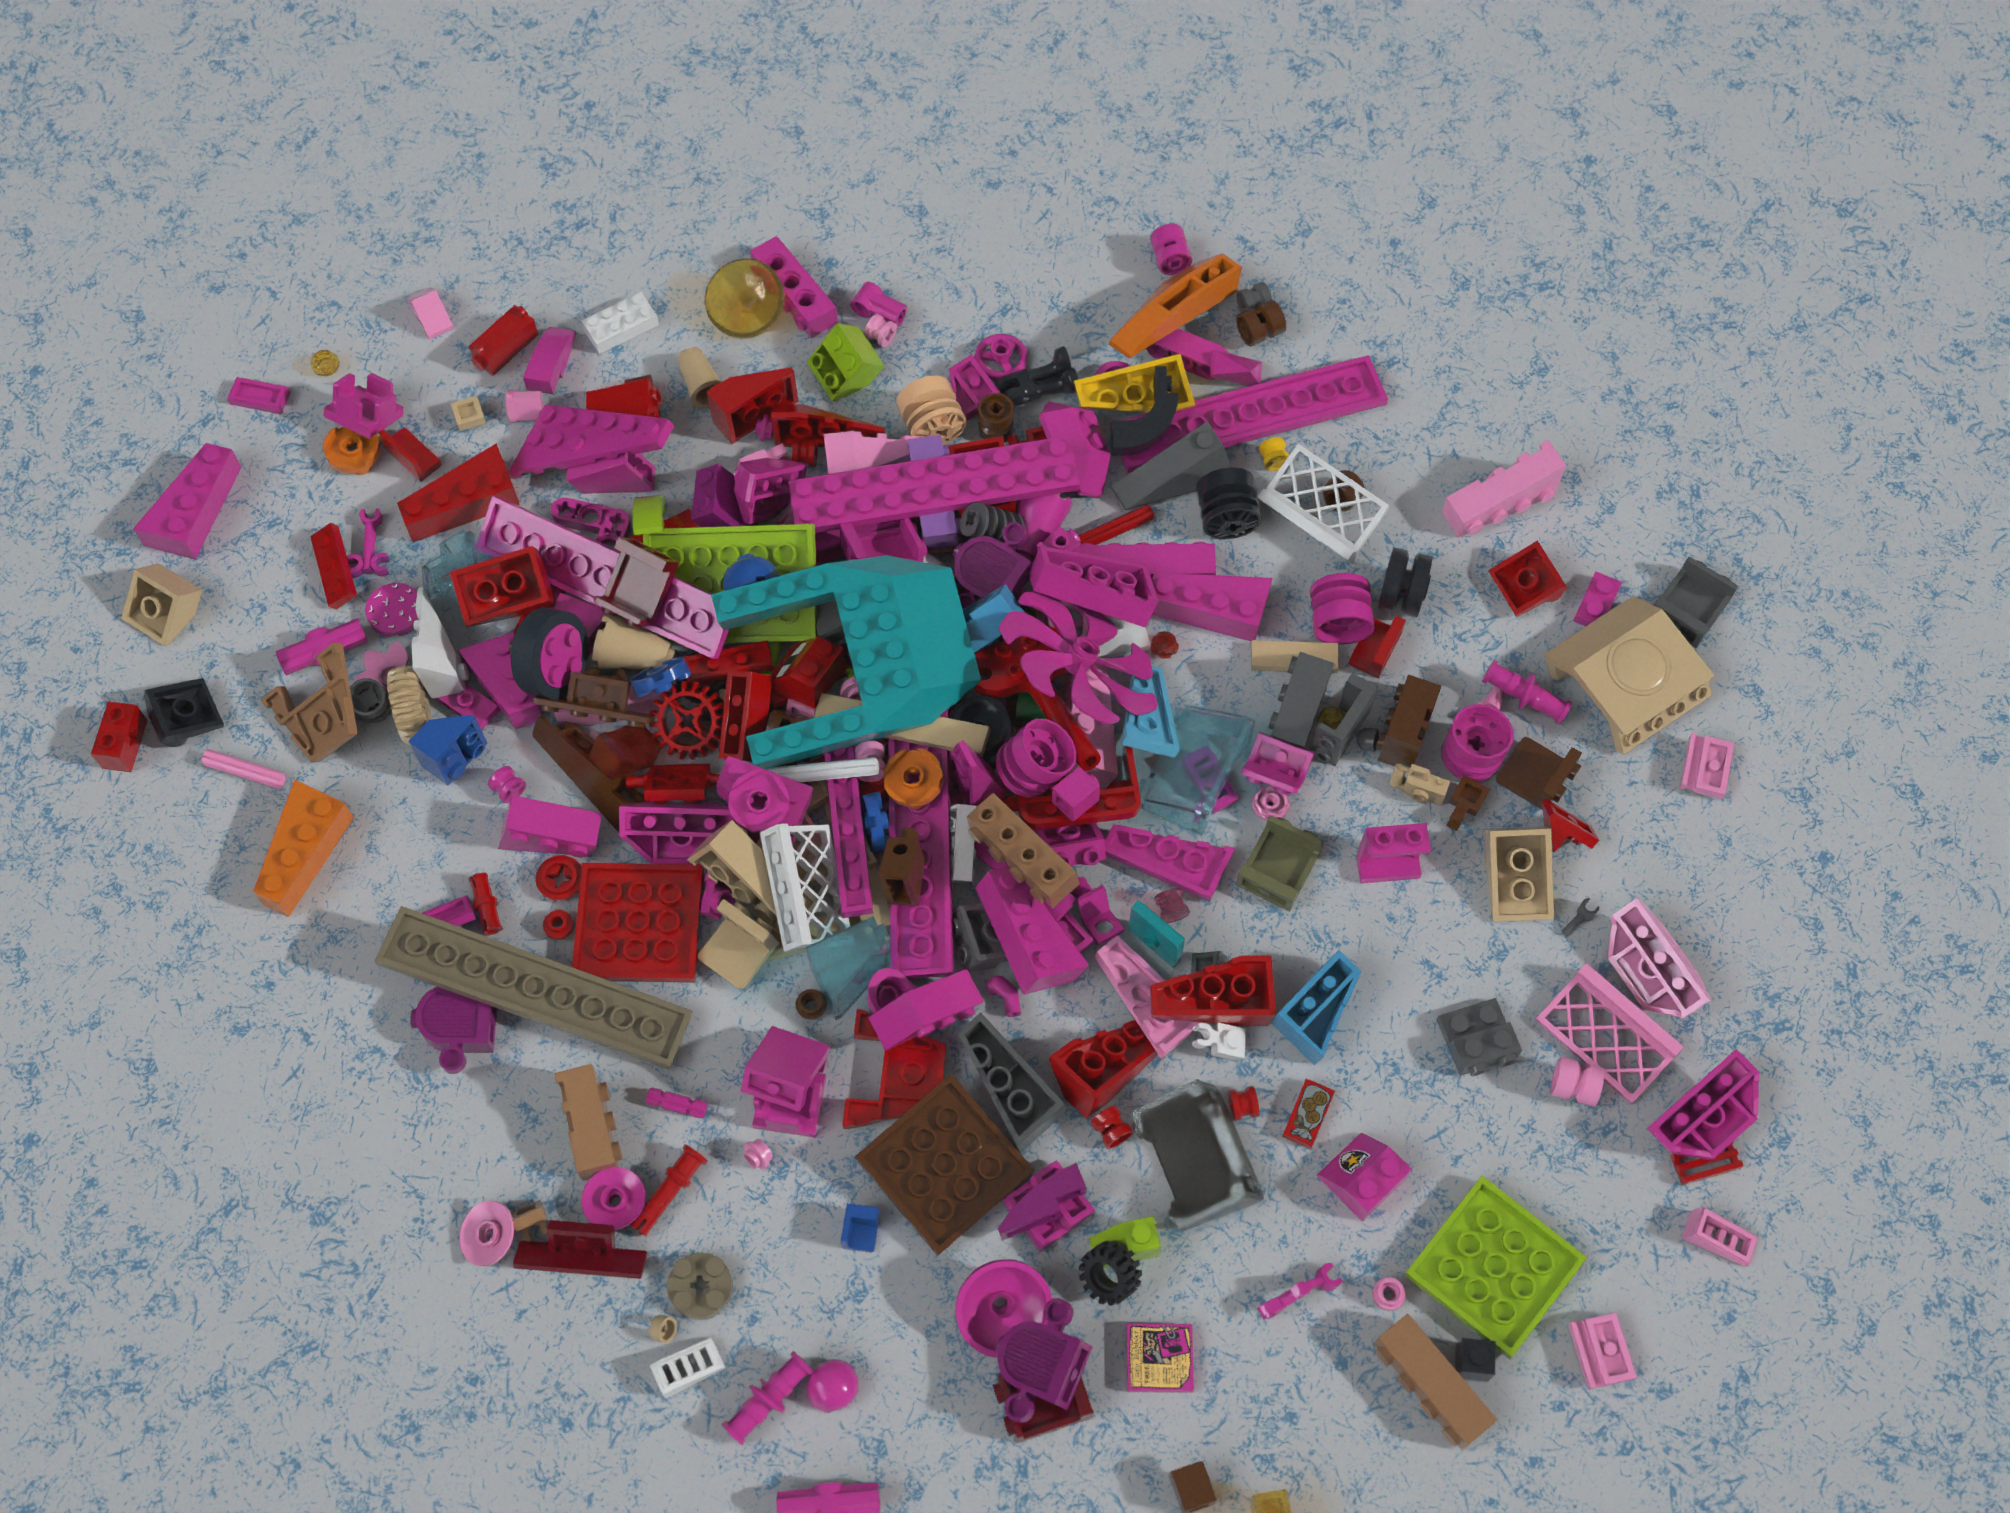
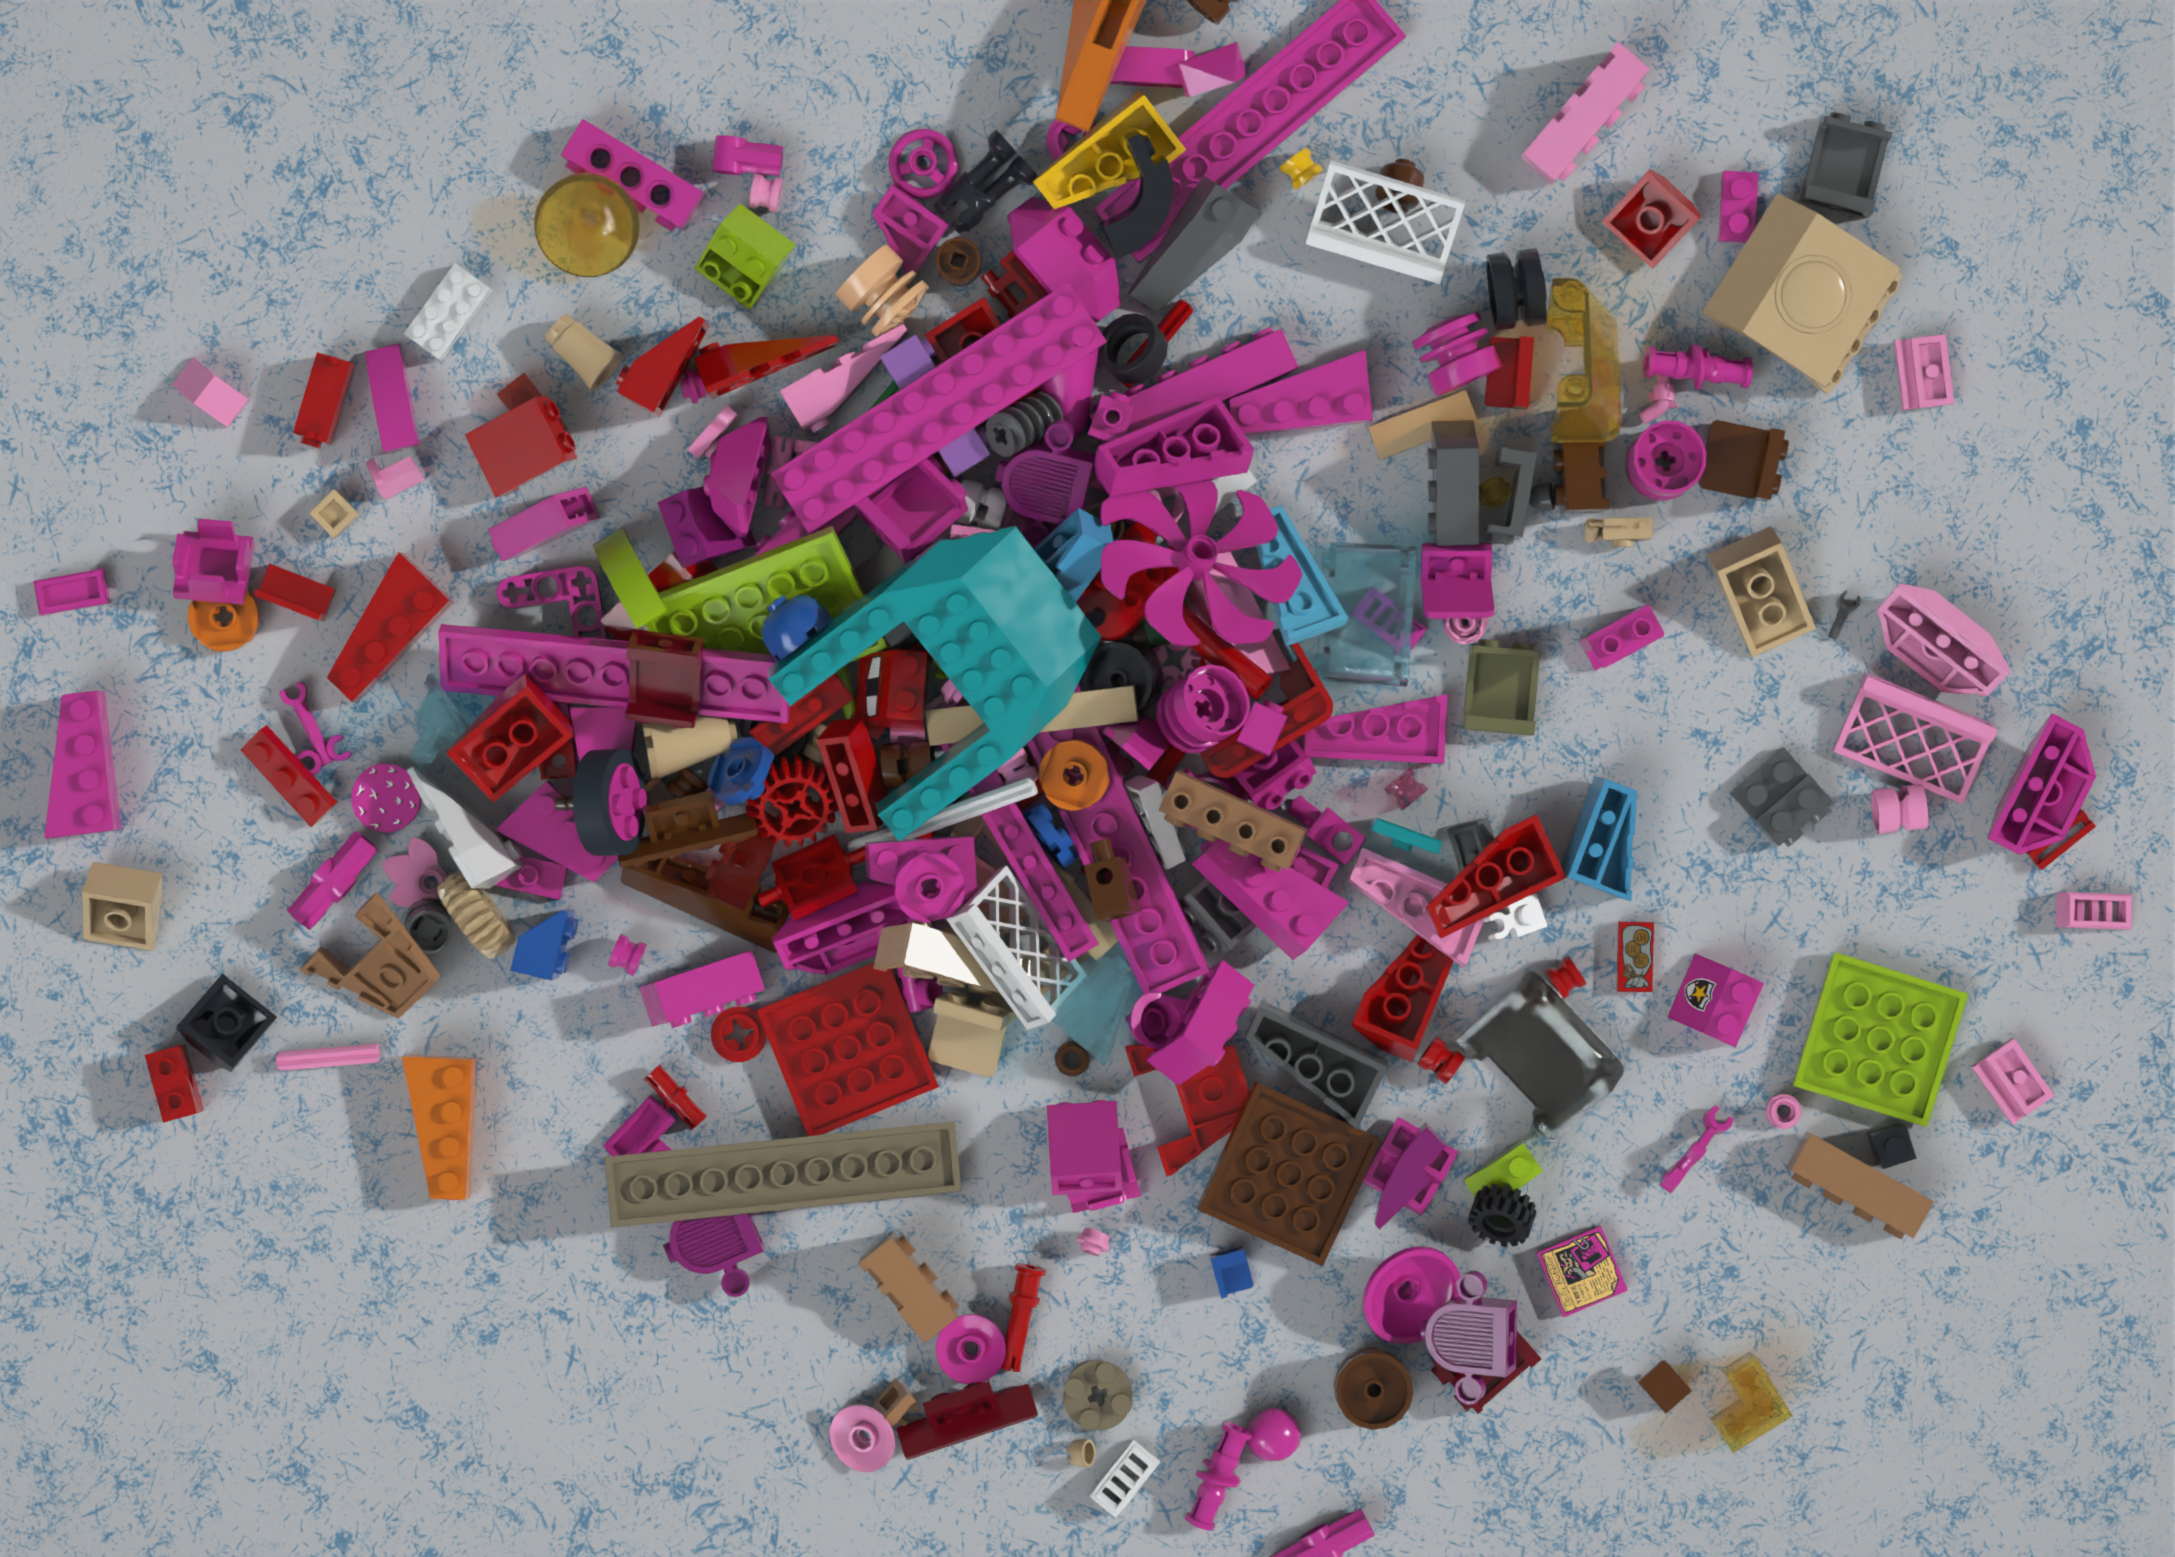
camera: 25 degrees left, 25 degrees up
(325, 357) = (116, 517): clear yellow plate -> none
(561, 932) = (774, 1081): red plate -> none
(578, 436) = (488, 505): dark pink wing -> none
(676, 1103) = (983, 1222): dark pink axle -> none
(805, 451) = (754, 399): red wheel -> none
(938, 1396) = (1370, 1367): none -> reddish brown wheel
(1006, 990) = (1270, 957): dark pink arm -> none
(1097, 517) = (1147, 363): none -> black tyre
(1164, 638) = (1272, 464): clear red plate -> none
(1228, 503) = (1277, 269): black wheel -> none
(1437, 645) = (1591, 401): none -> clear yellow windscreen
(1467, 799) = (1676, 524): reddish brown plate -> none
(1565, 826) = (1797, 517): red slope -> none

